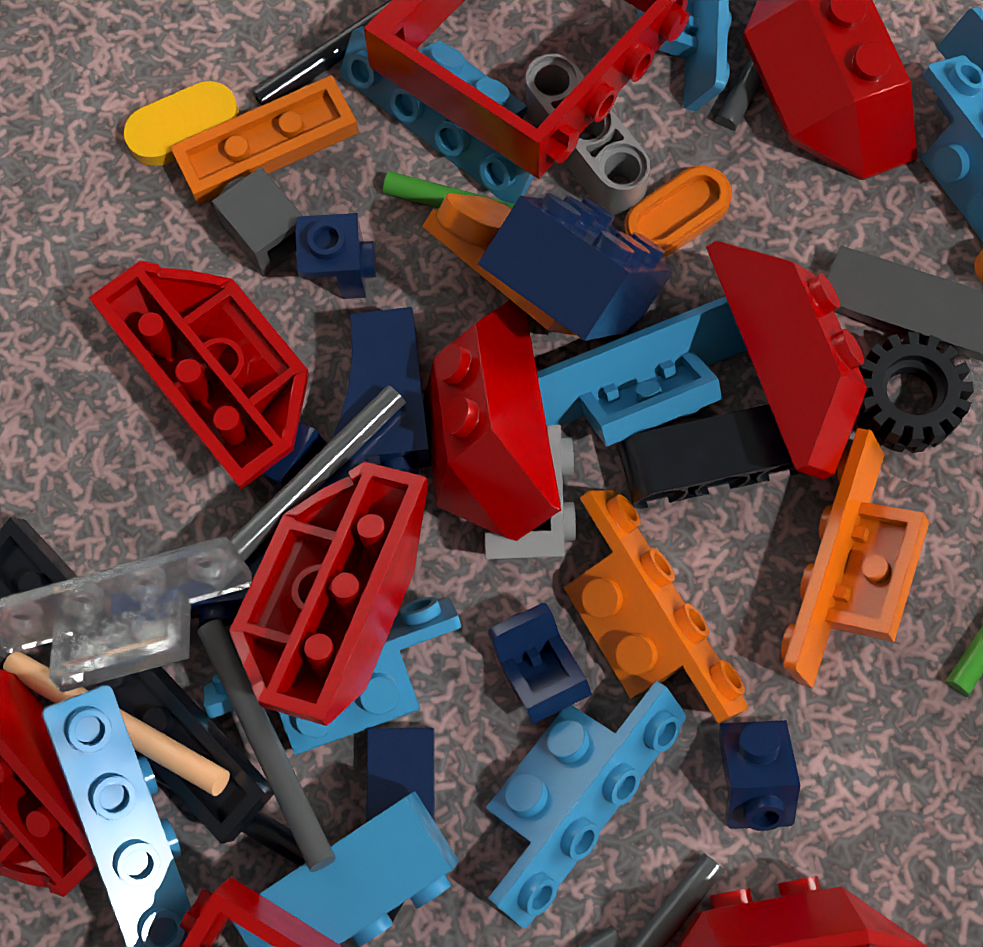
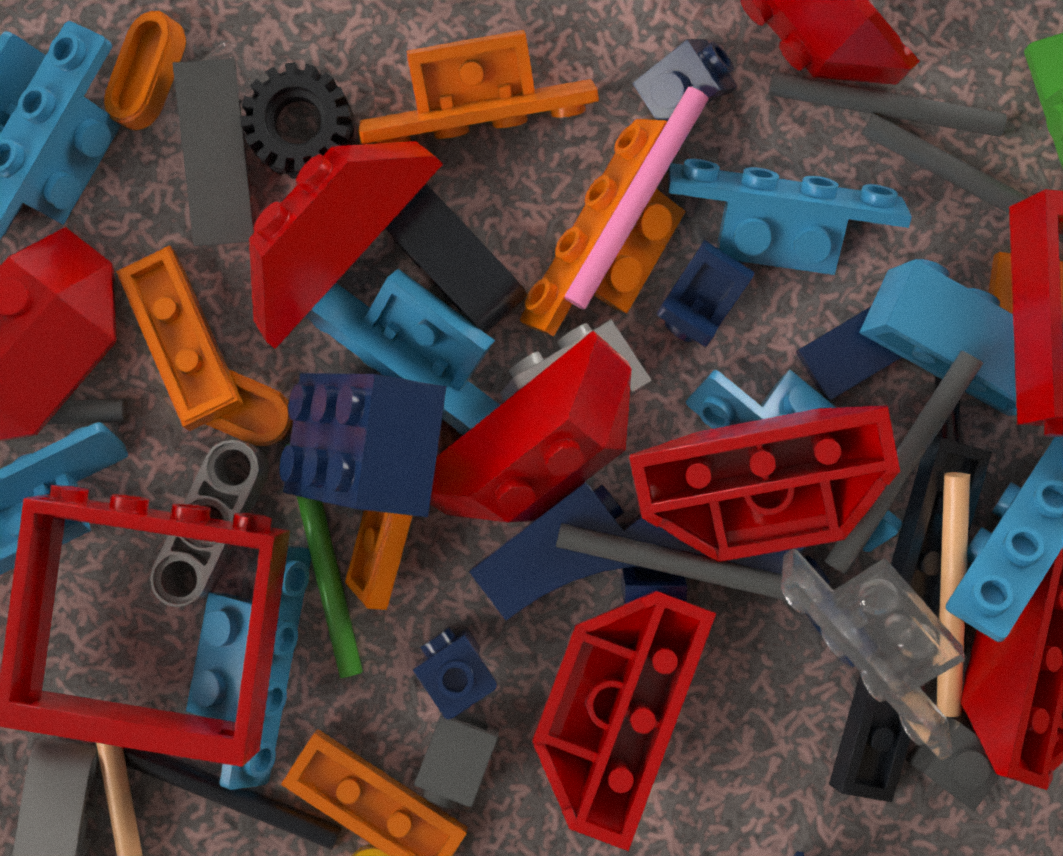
camera: 125 degrees left, 15 degrees up
(472, 218) = (356, 555): orange tile -> none
(669, 645) = (636, 197): none -> bright pink bar
(763, 192) = (179, 338): none -> orange tile

